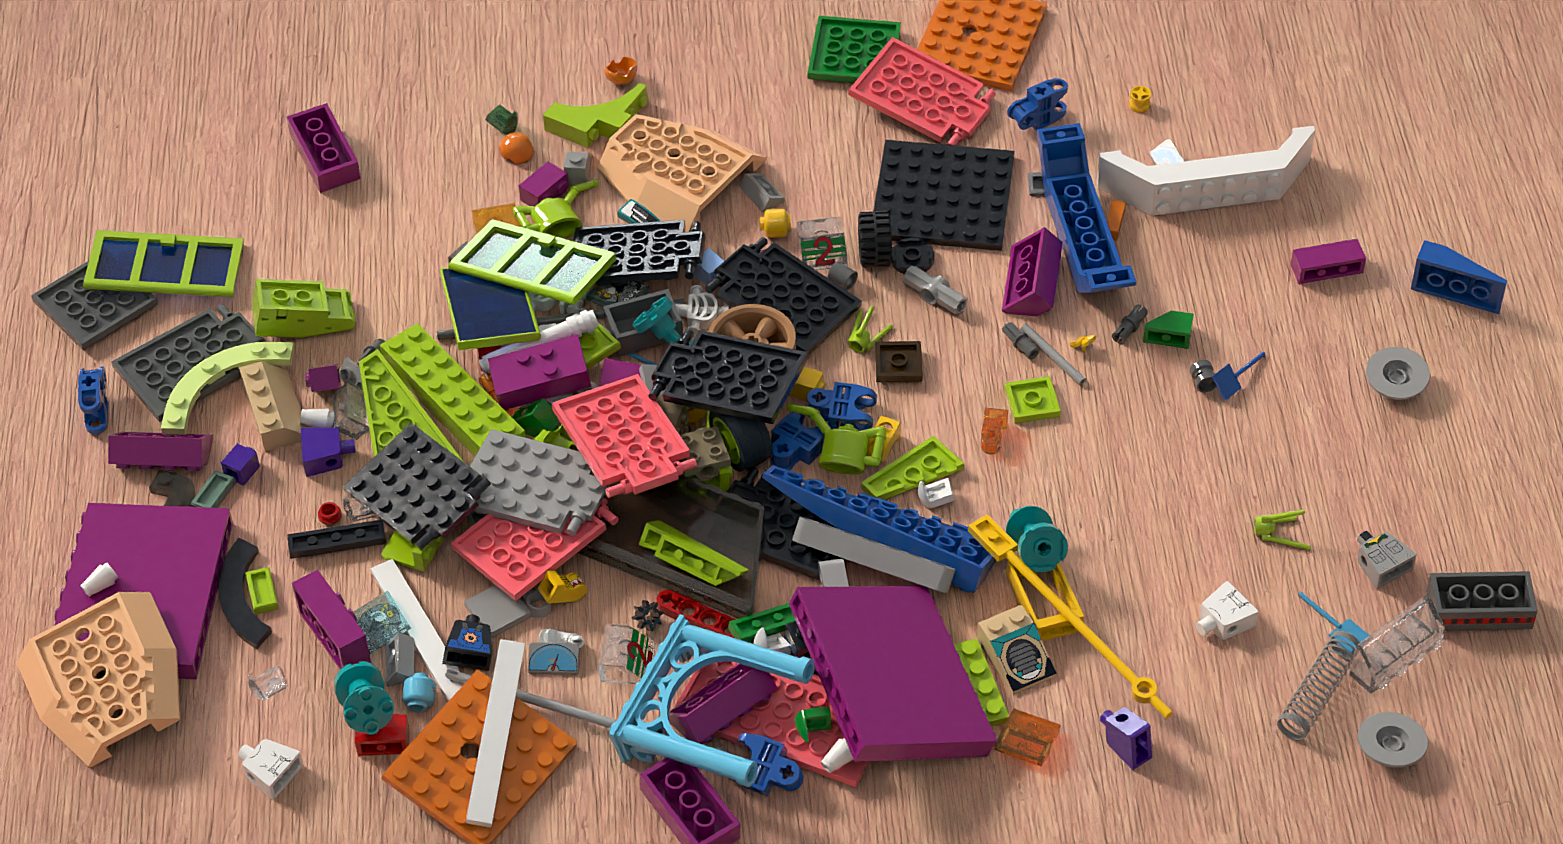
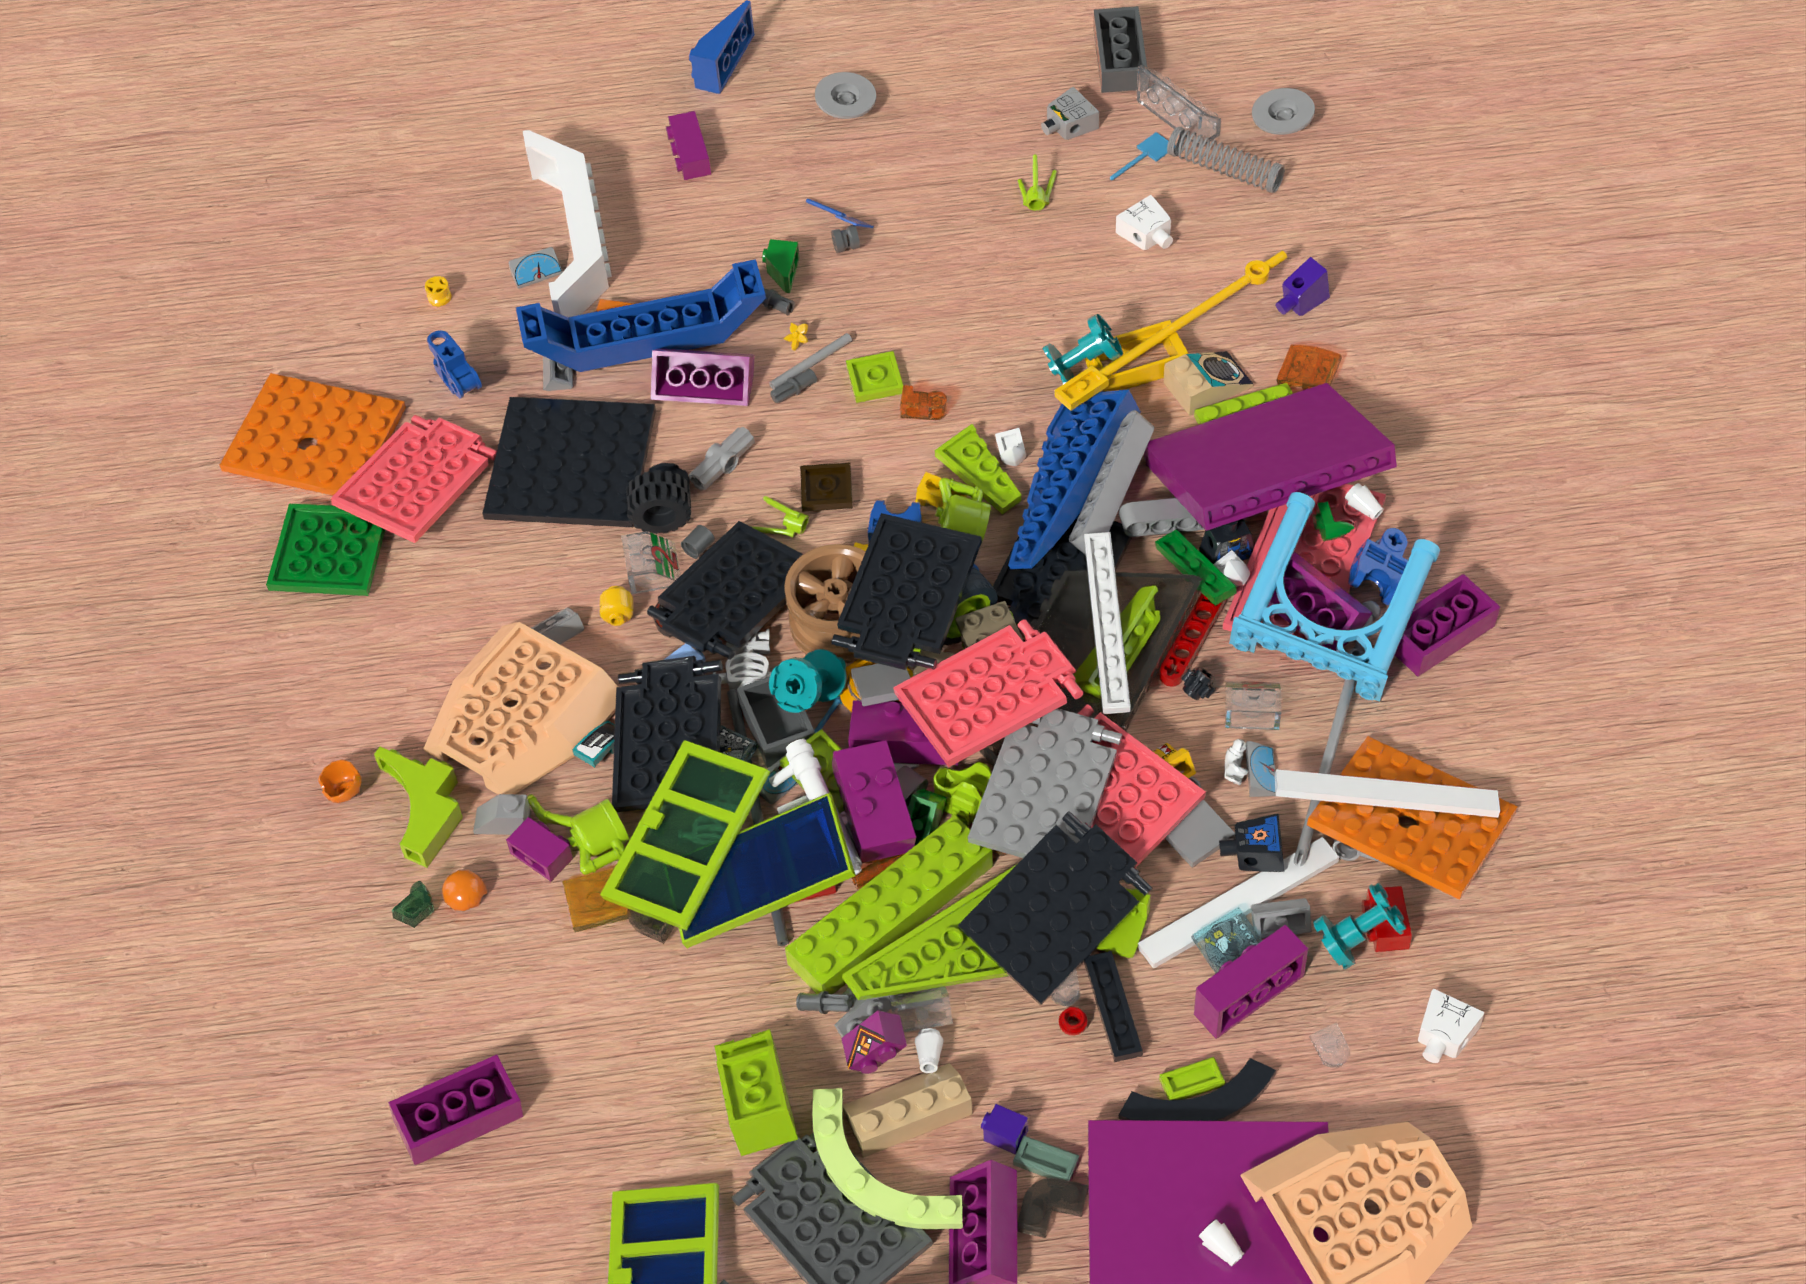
camera: 90 degrees left, 5 degrees up
(323, 450) = (978, 1038): dark purple torso -> none
(419, 692) = (1326, 889): medium azure head -> none
(701, 531) = (1107, 623): none -> white tile

